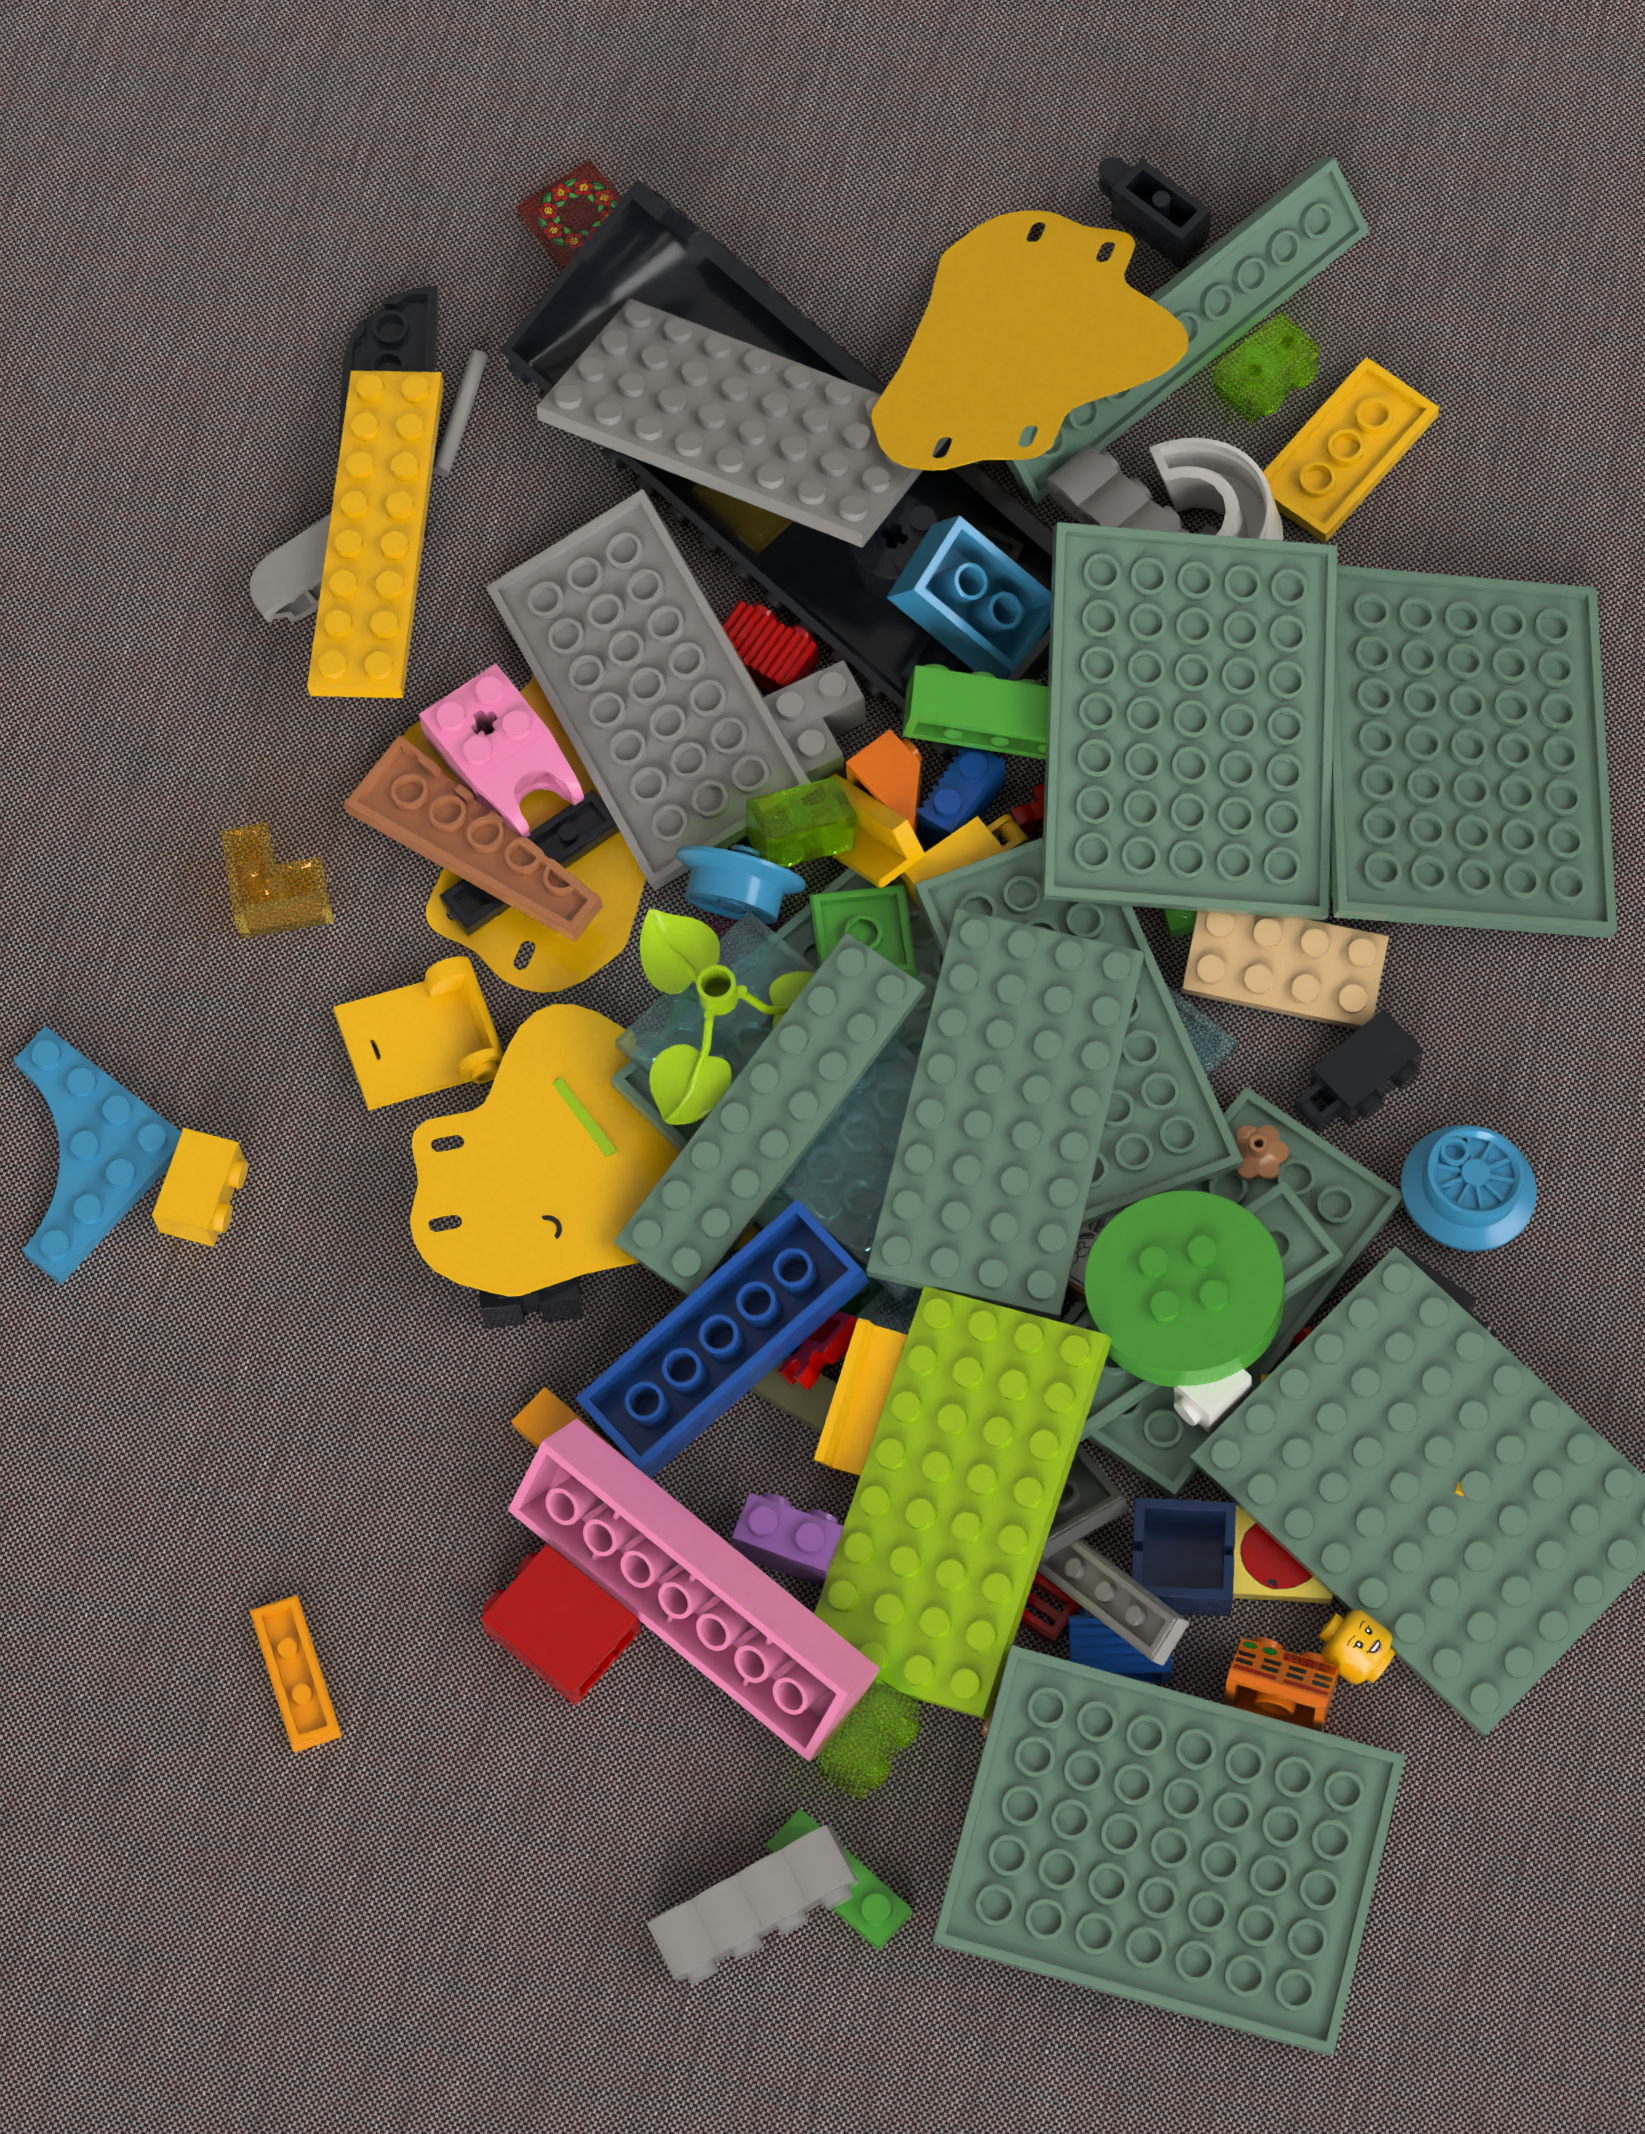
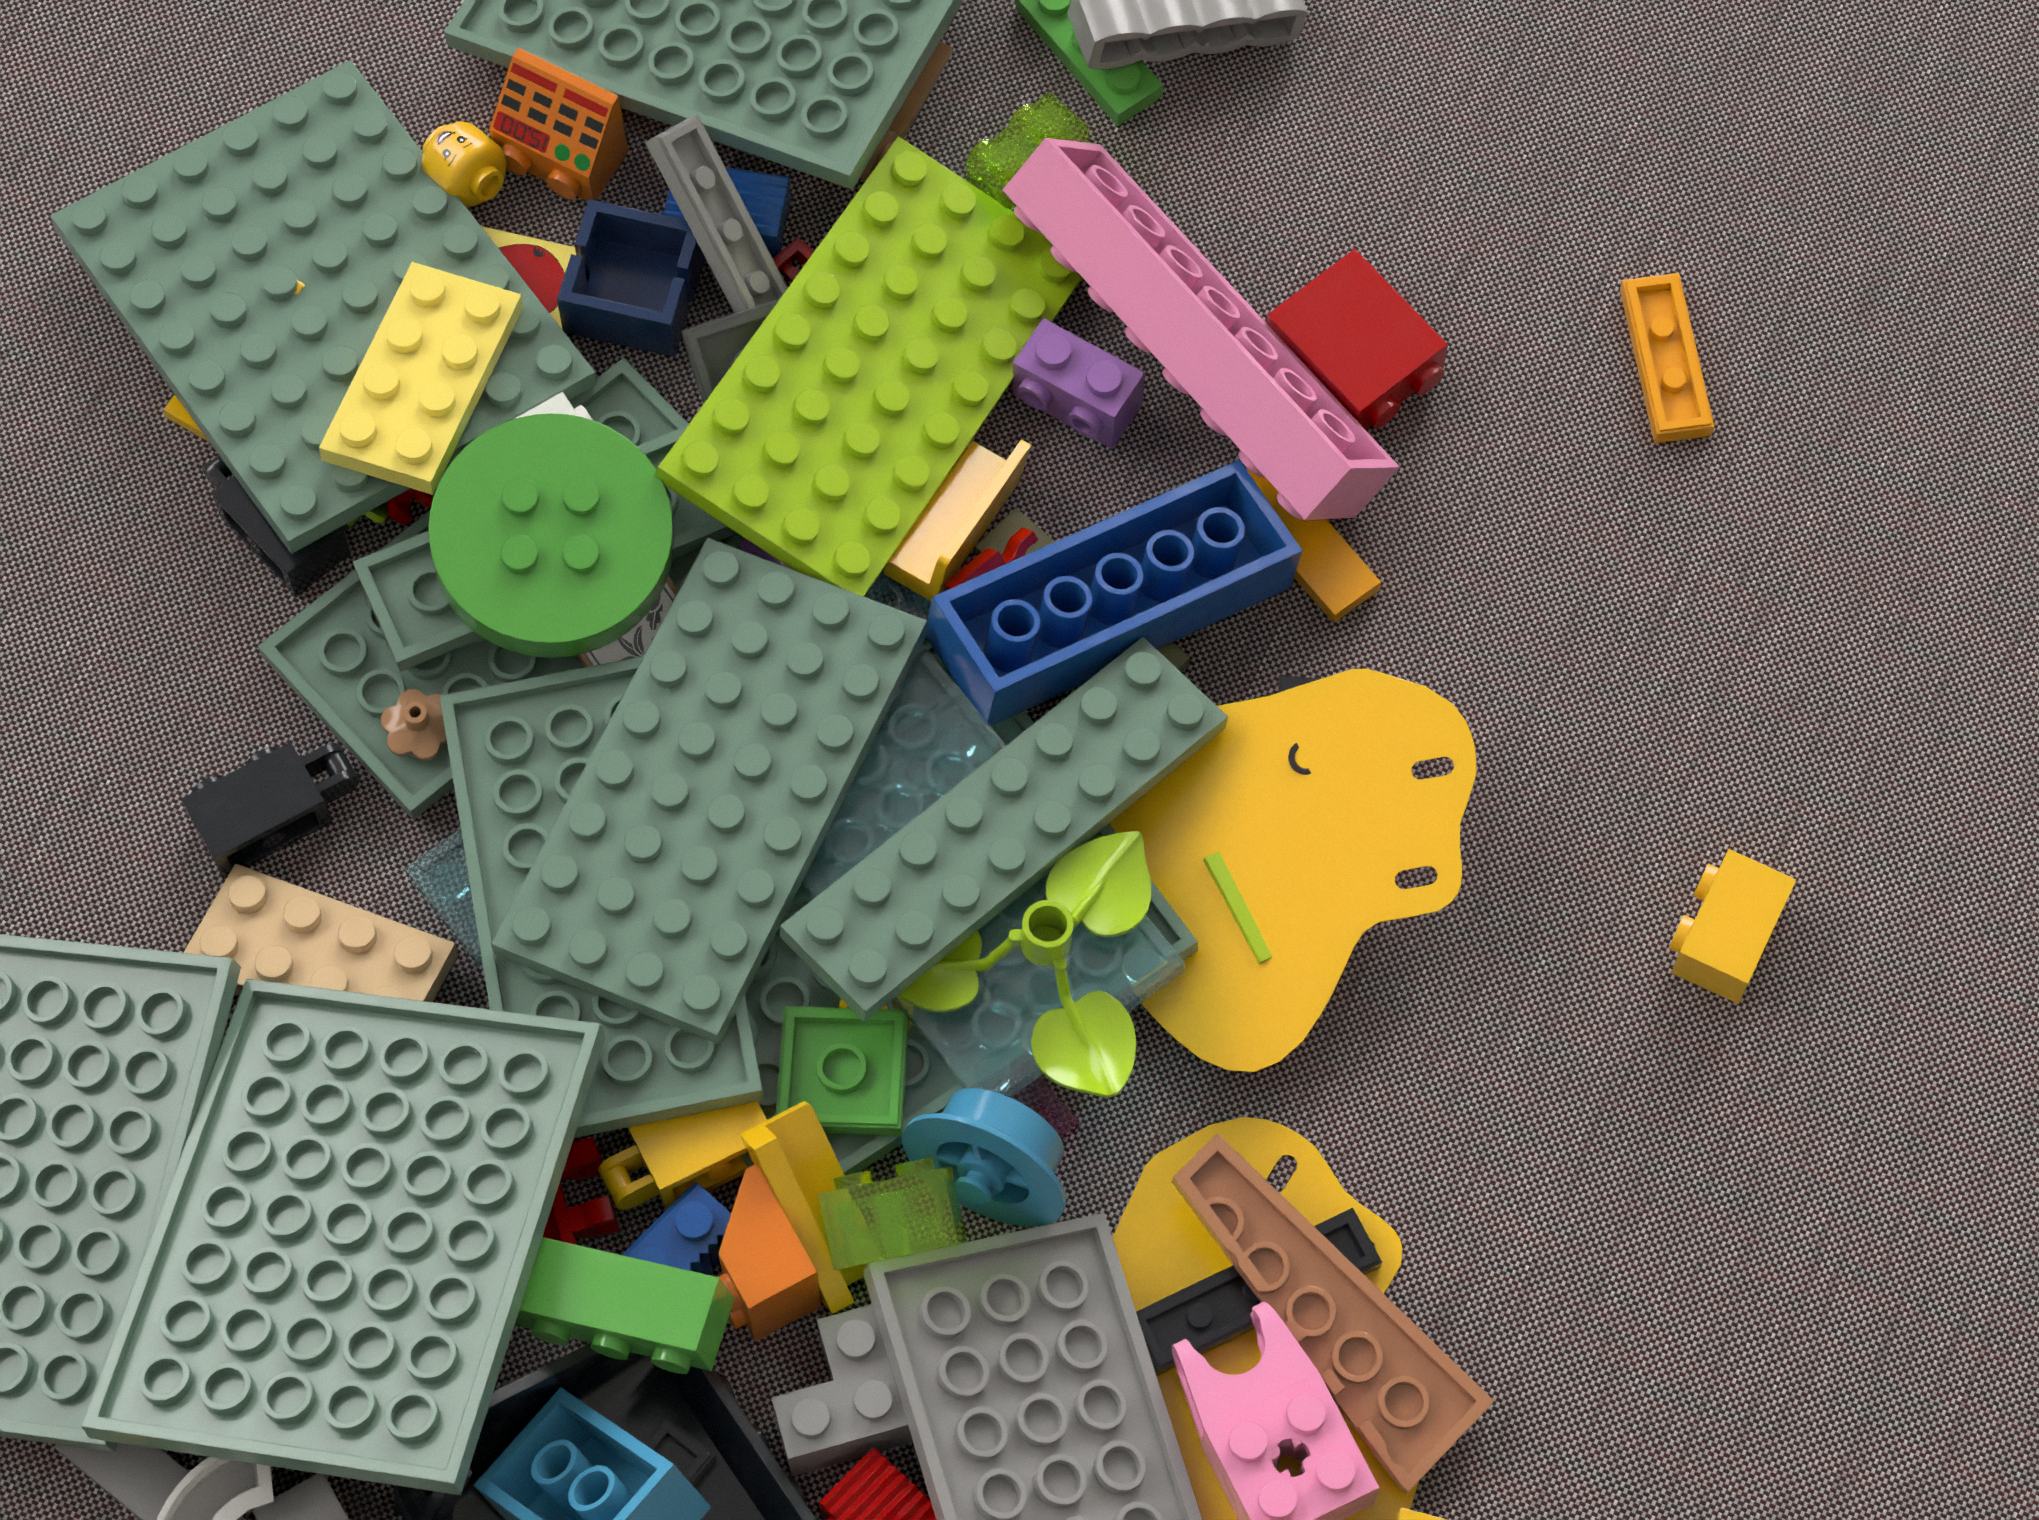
camera: 175 degrees left, 0 degrees up
(108, 1152) = (1844, 1015): dark azure plate -> none
(270, 894) = (1613, 1286): clear yellow brick -> none
(425, 1036) = (1421, 1075): yellow door -> none
(1327, 1405) = (421, 378): none -> light yellow plate
(1468, 1188) = (179, 644): dark azure wheel -> none

